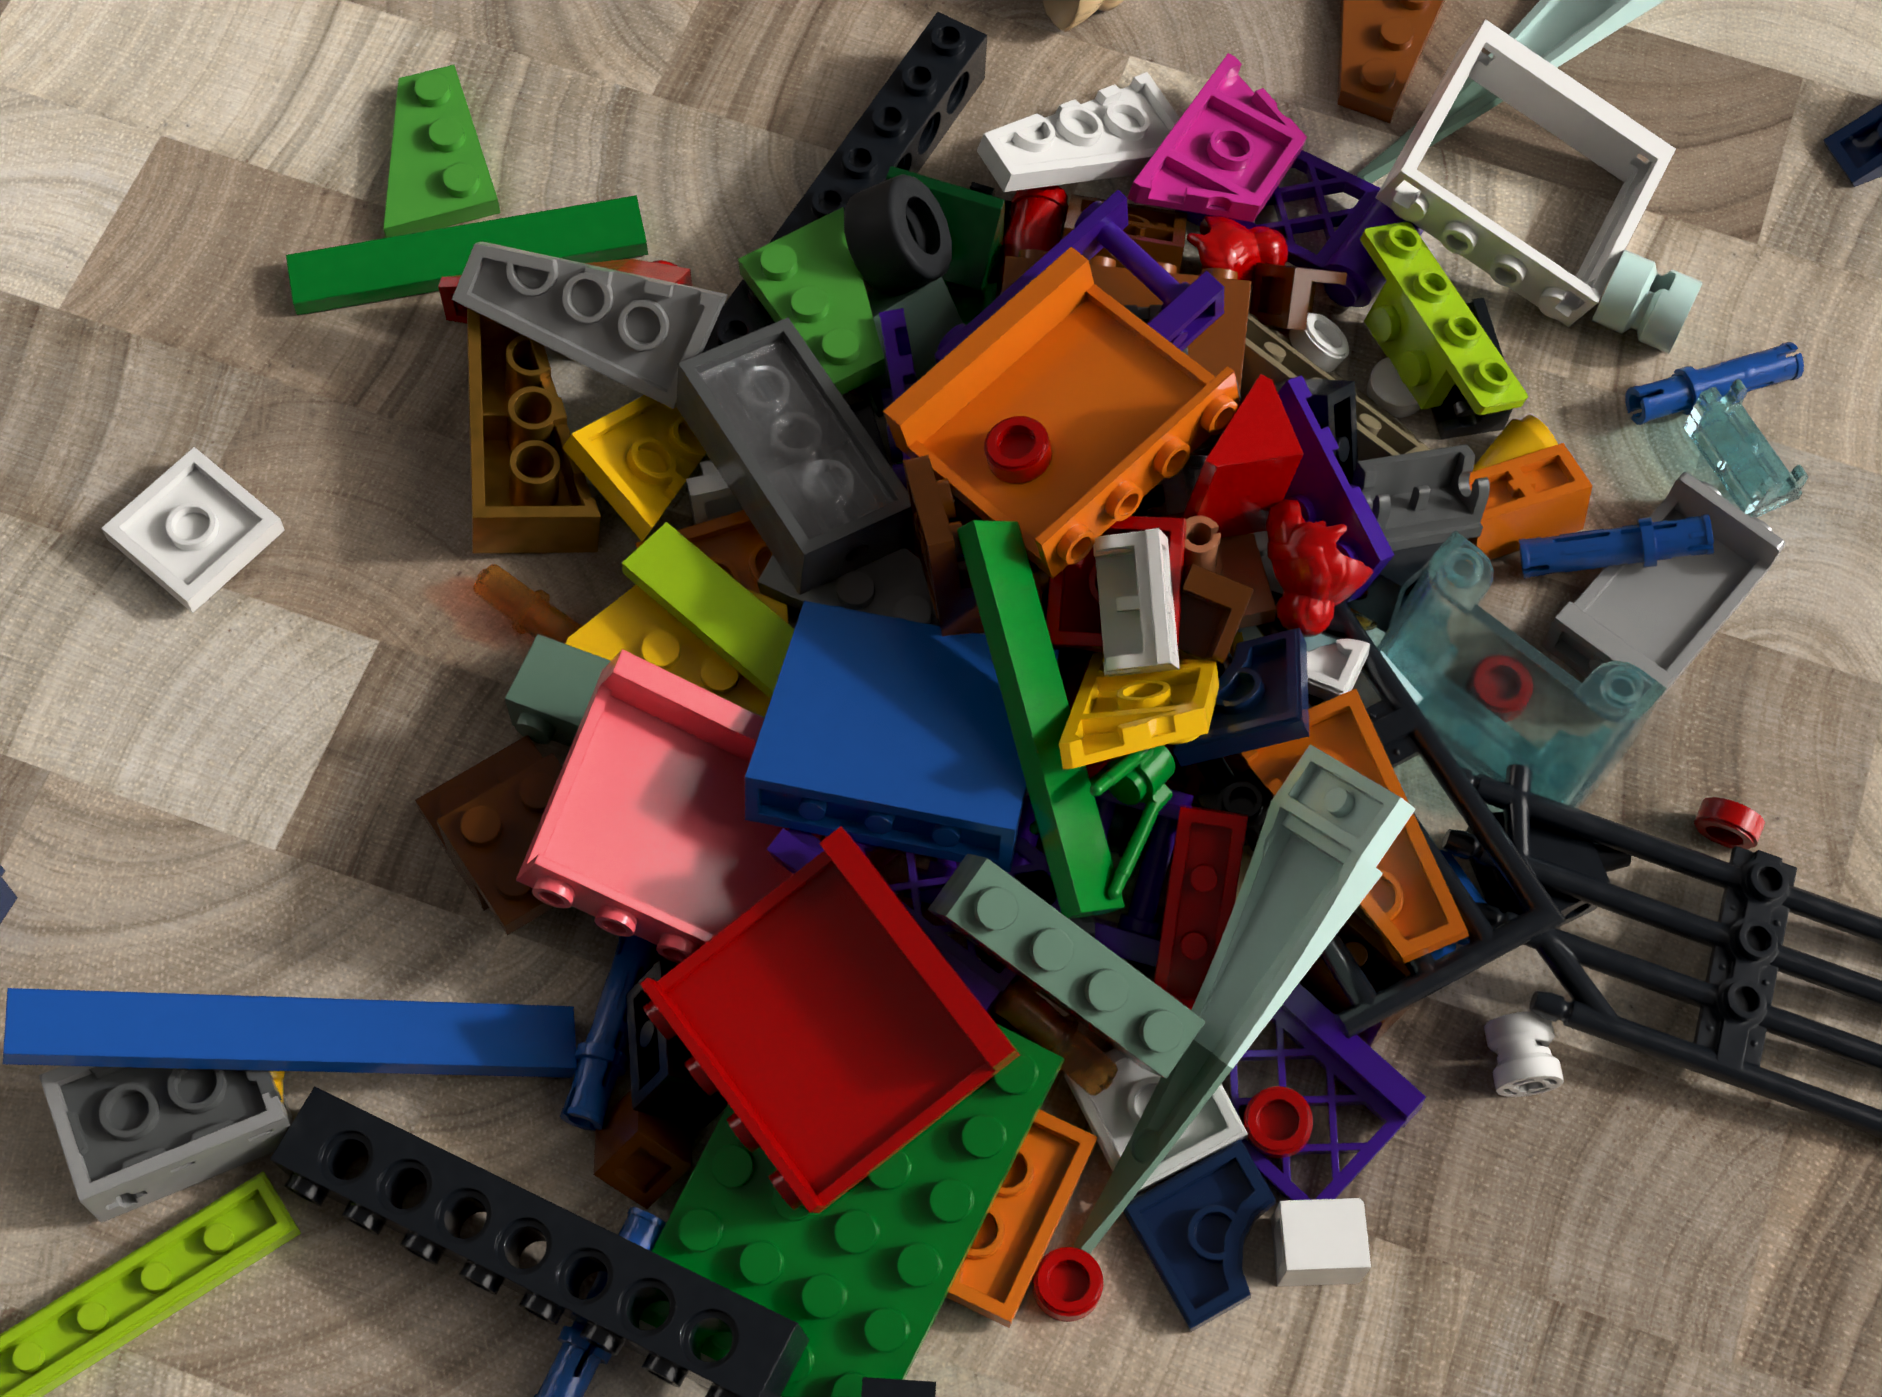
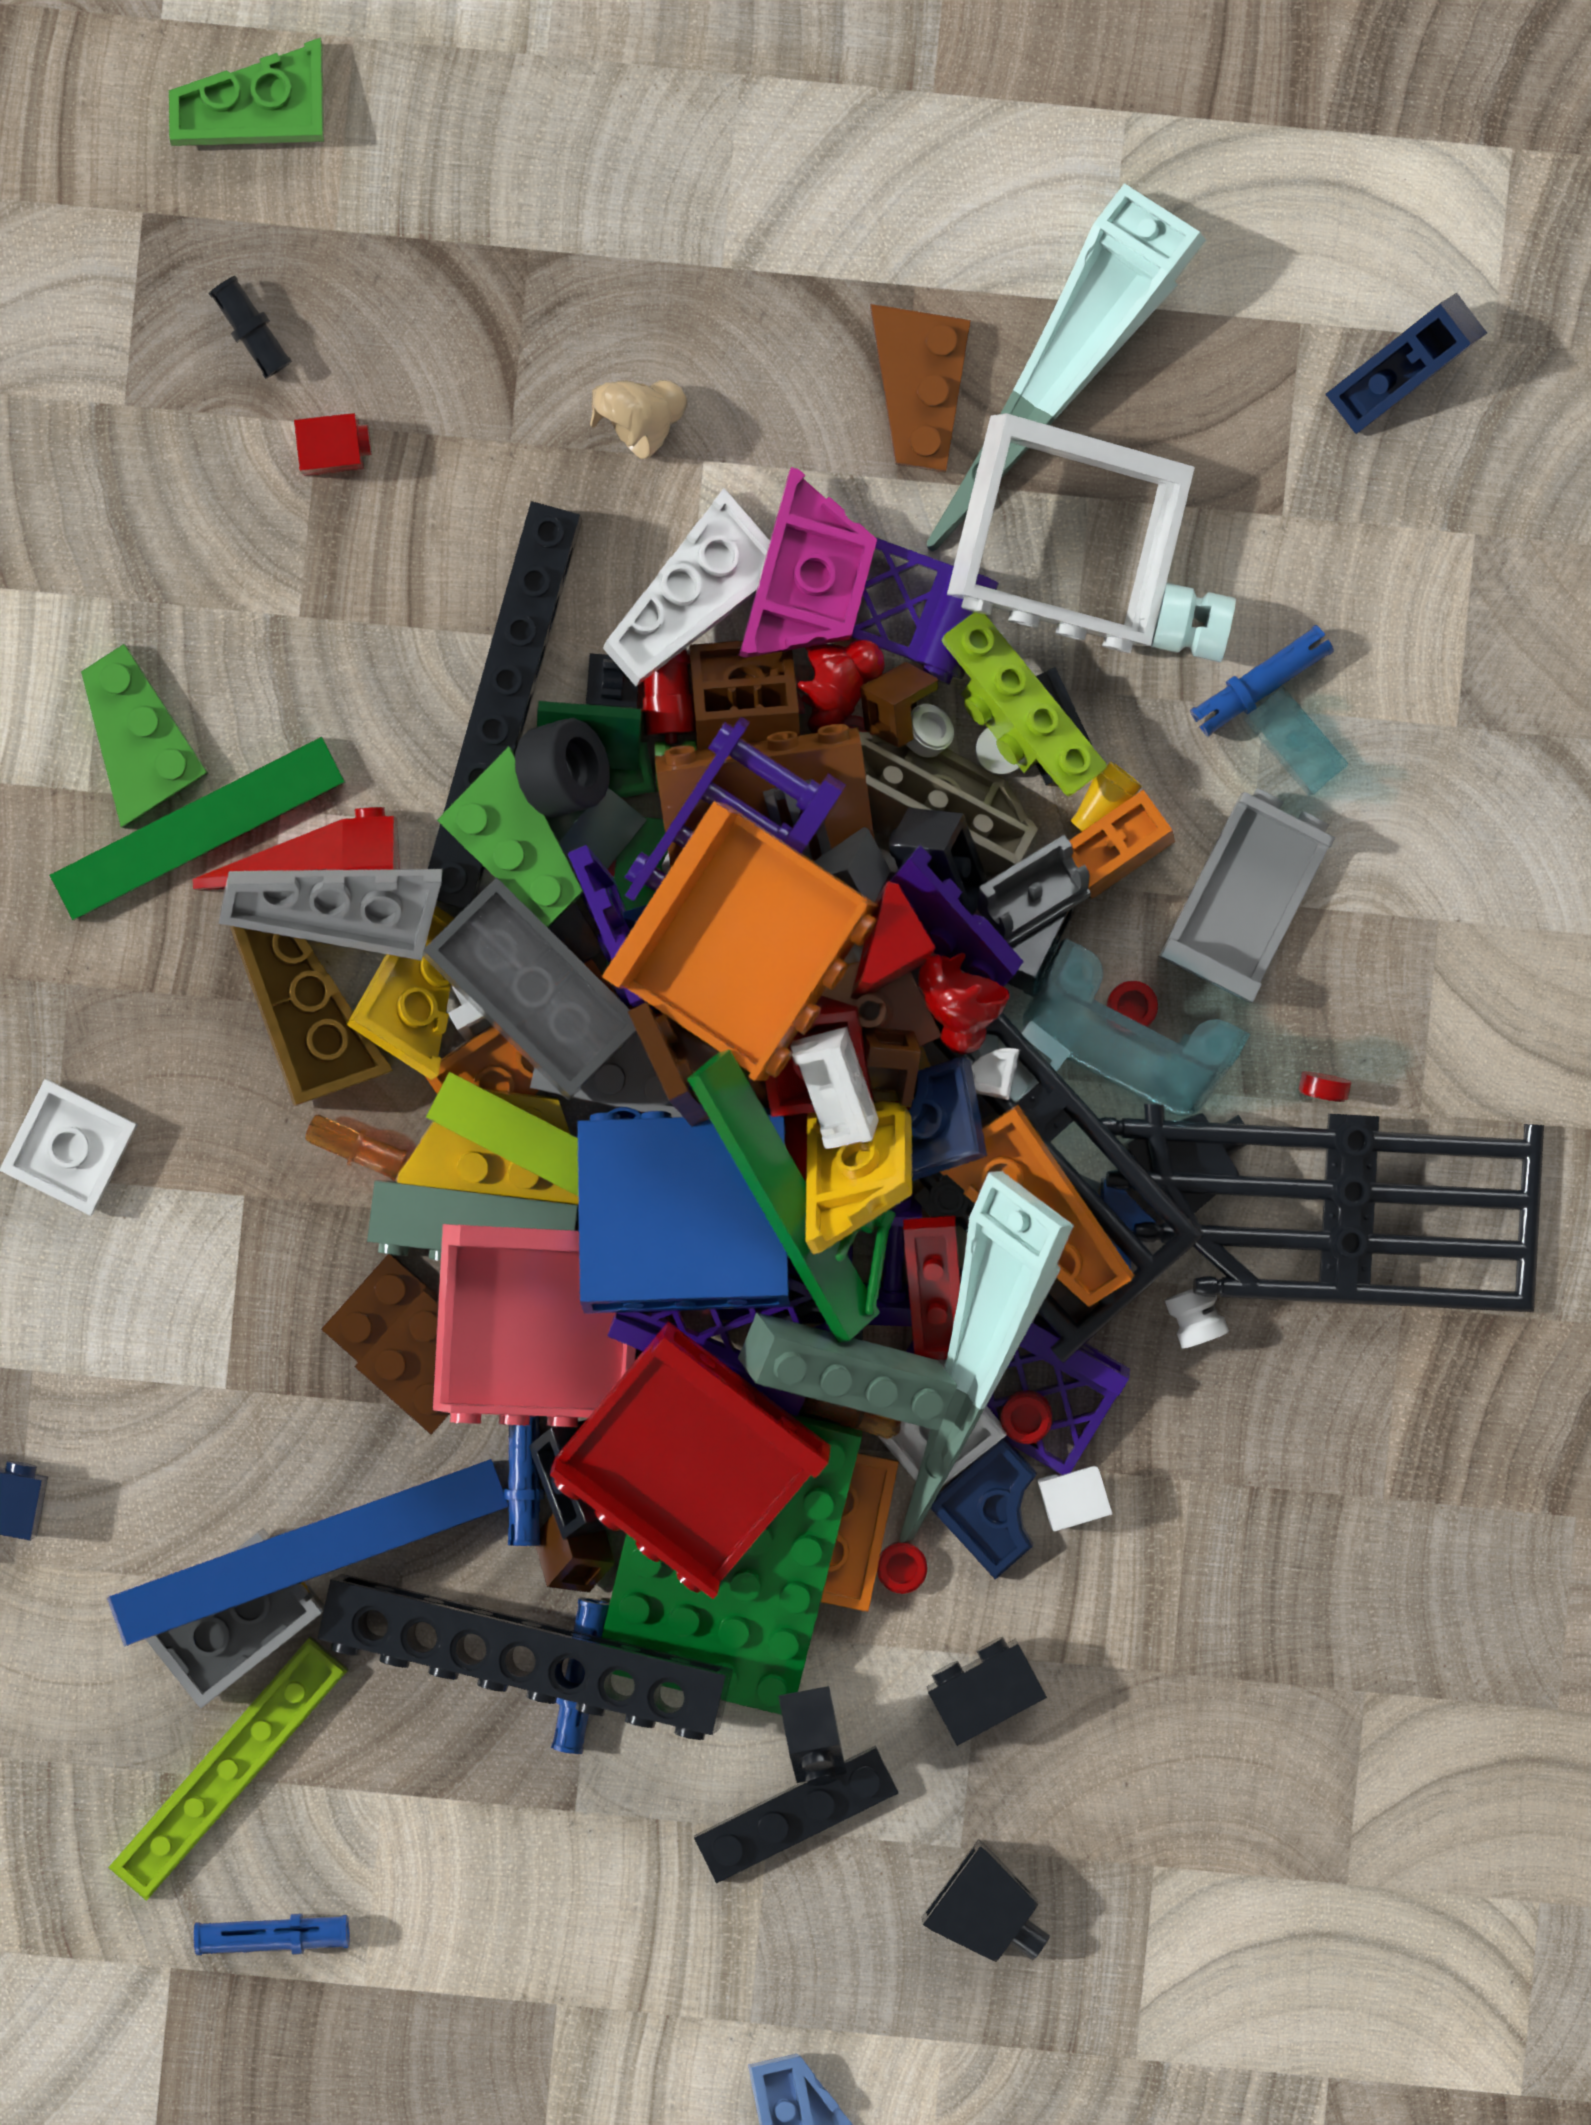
camera: 15 degrees left, 25 degrees up
(1018, 449) = (714, 978): red tile -> none
(1627, 544) = (1202, 868): blue pin -> none

